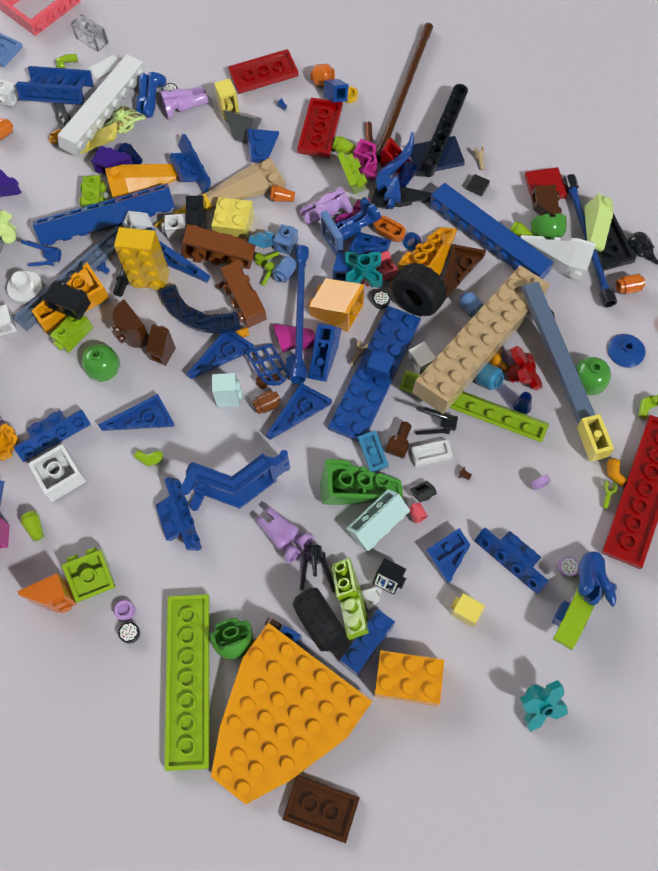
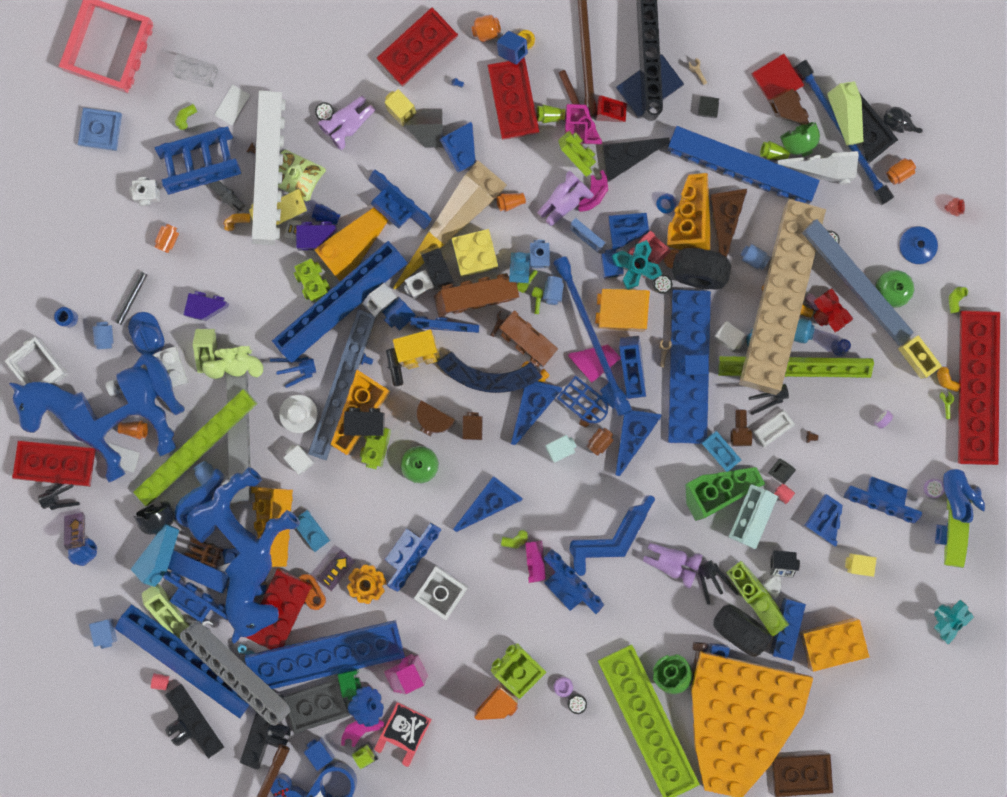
camera: 25 degrees left, 20 degrees up
(32, 524) = (441, 647): lime cone -> none
(148, 82) = (310, 144): blue piece -> none
(154, 482) = (535, 561): none -> dark pink slope
(366, 216) = (595, 217): blue piece -> none
(383, 177) = (609, 142): blue piece -> none
(390, 228) = (638, 199): orange plate -> none
(406, 173) = (630, 126): clear blue cone -> none

